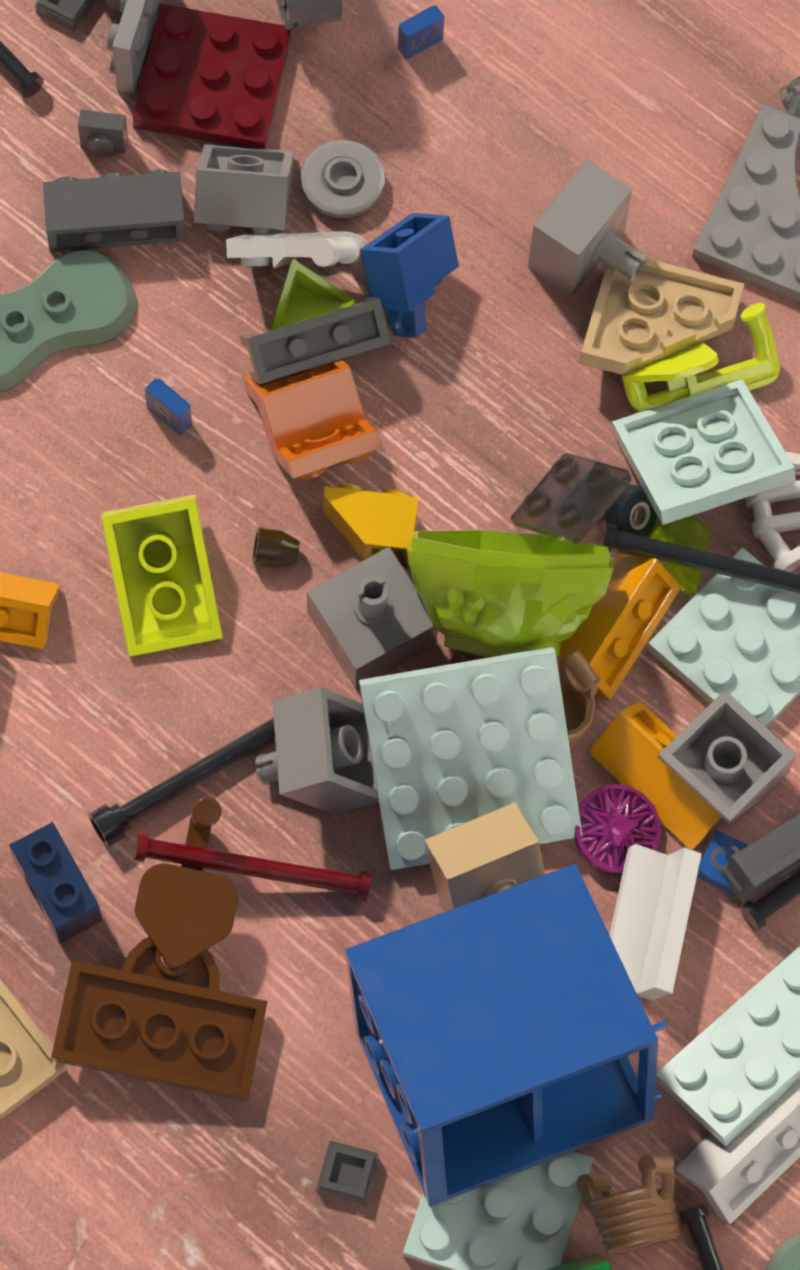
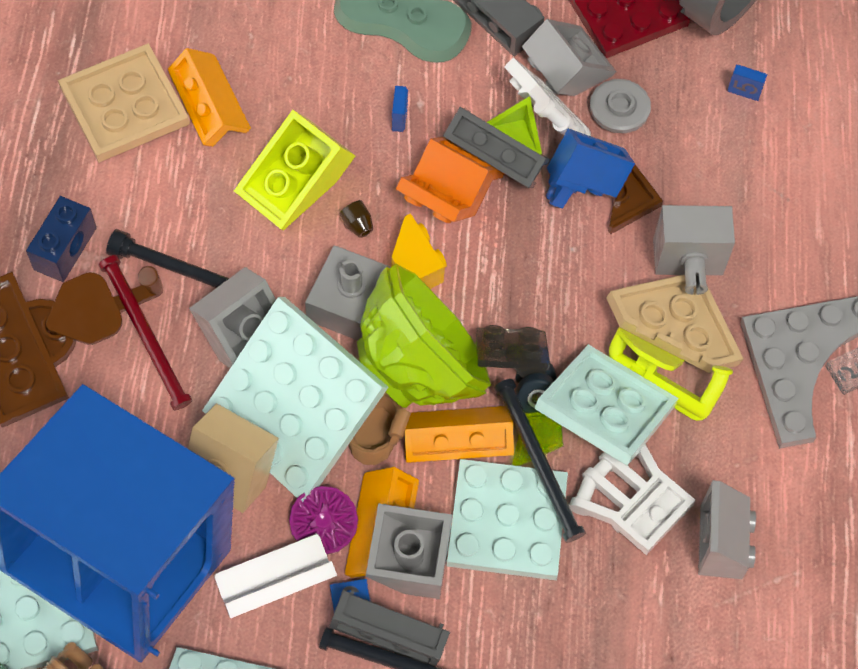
camera: 55 degrees right, 5 degrees down
(475, 256) = (633, 201): none -> reddish brown tile

